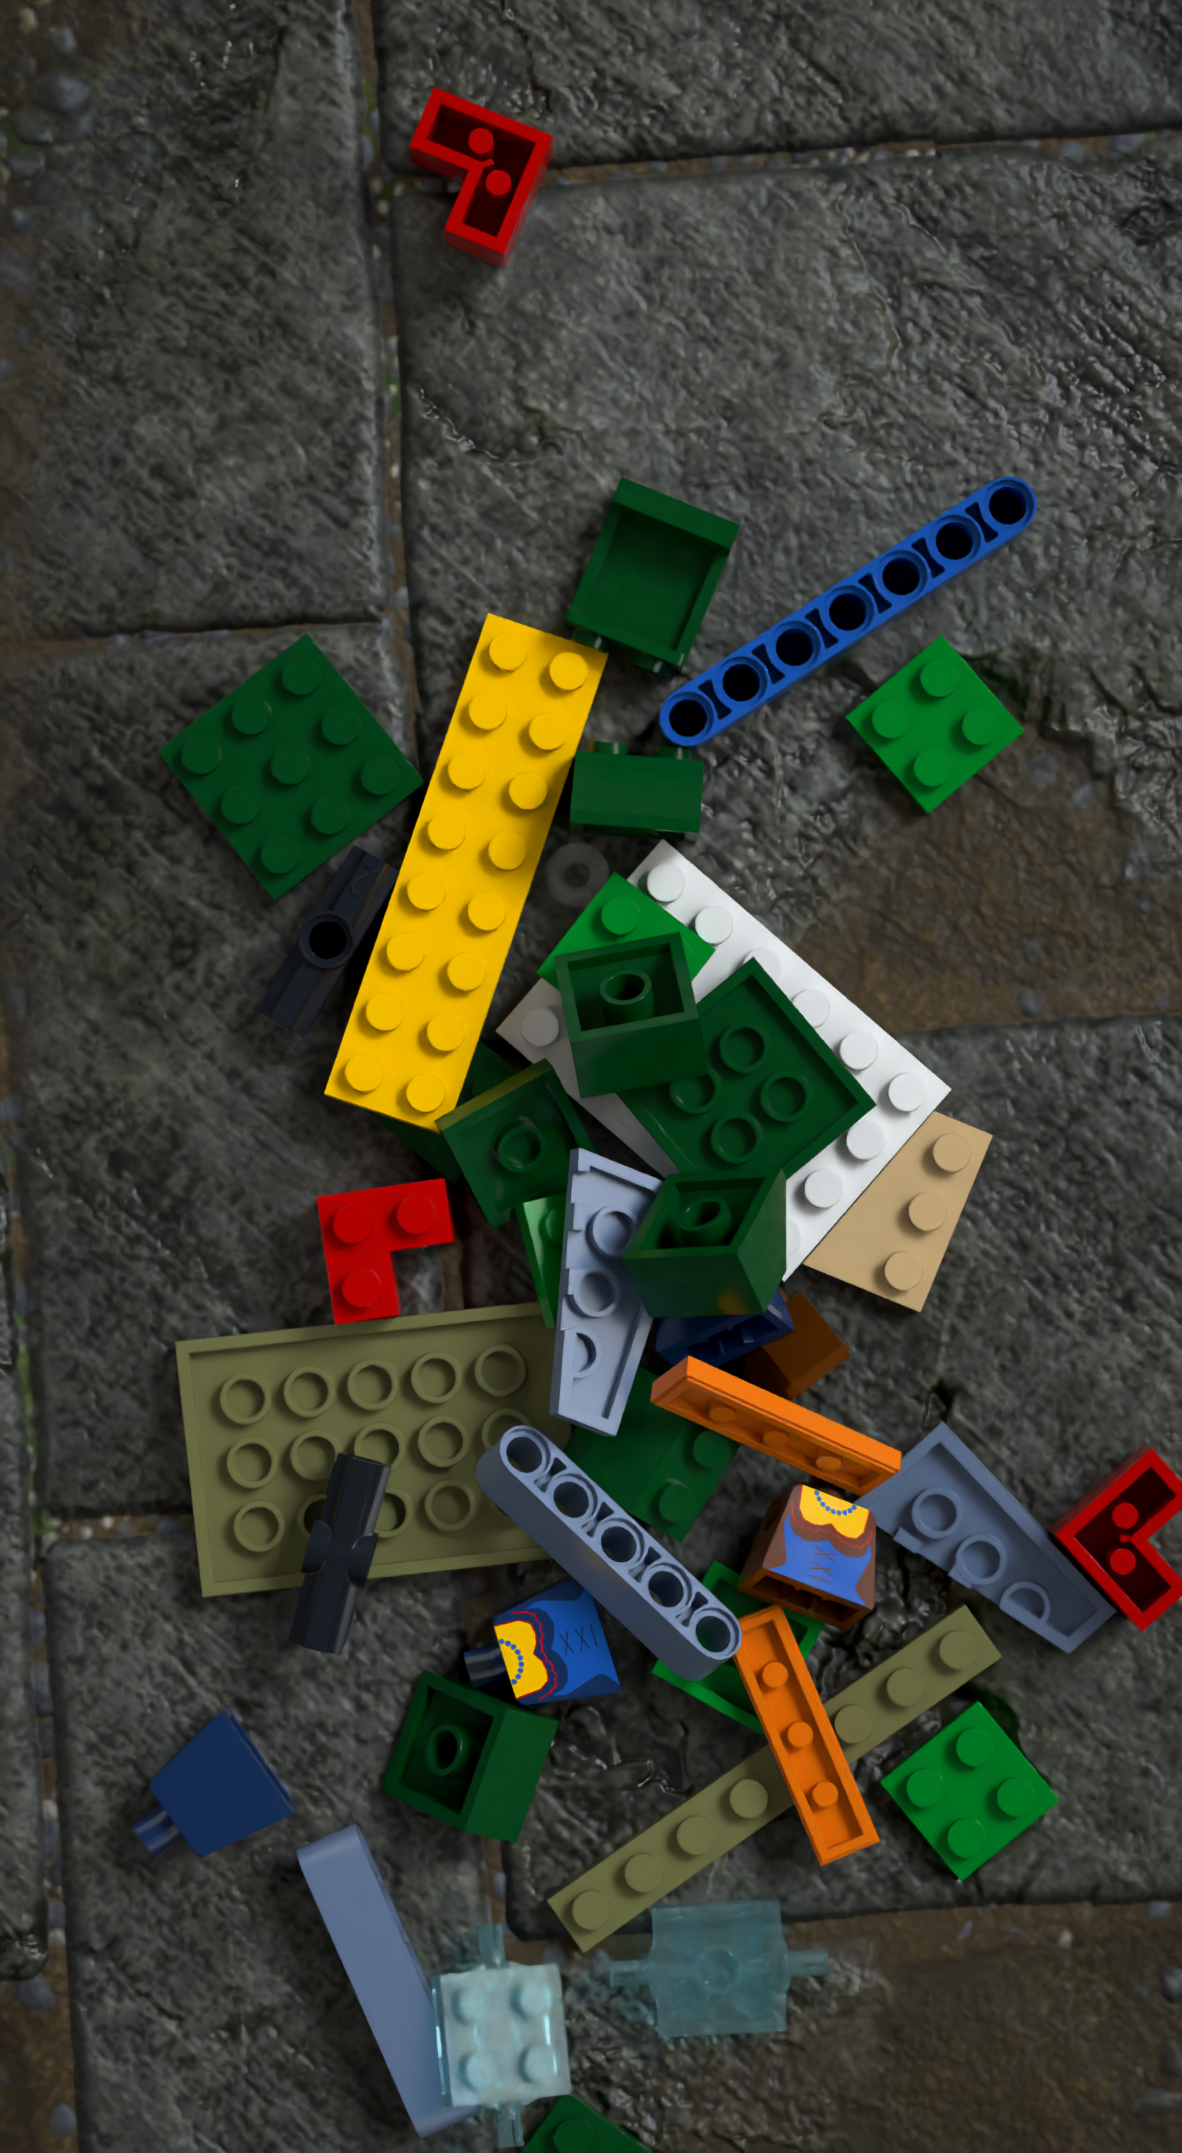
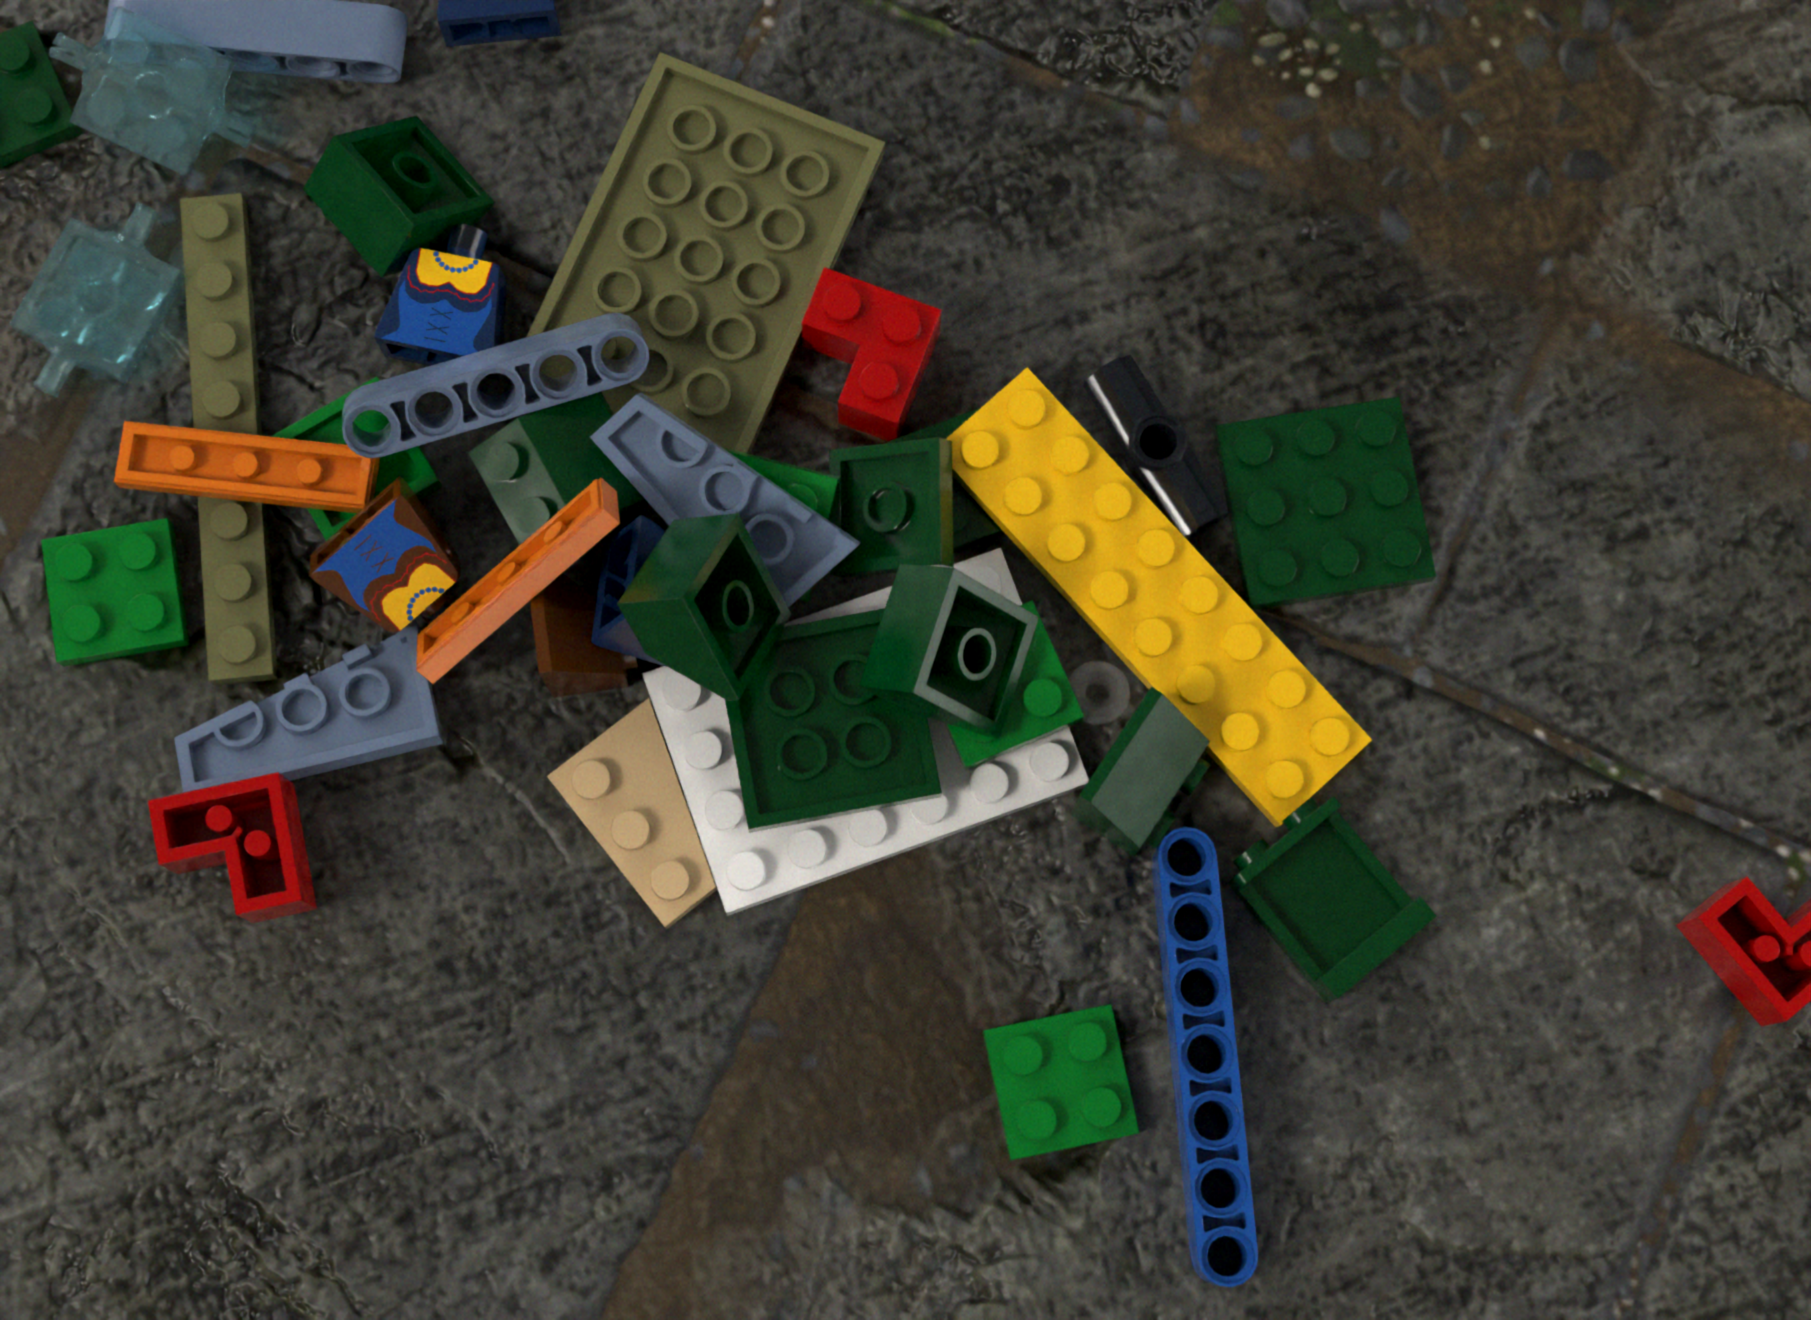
camera: 115 degrees right, 10 degrees down
(339, 1553) = (628, 170): black piece -> none

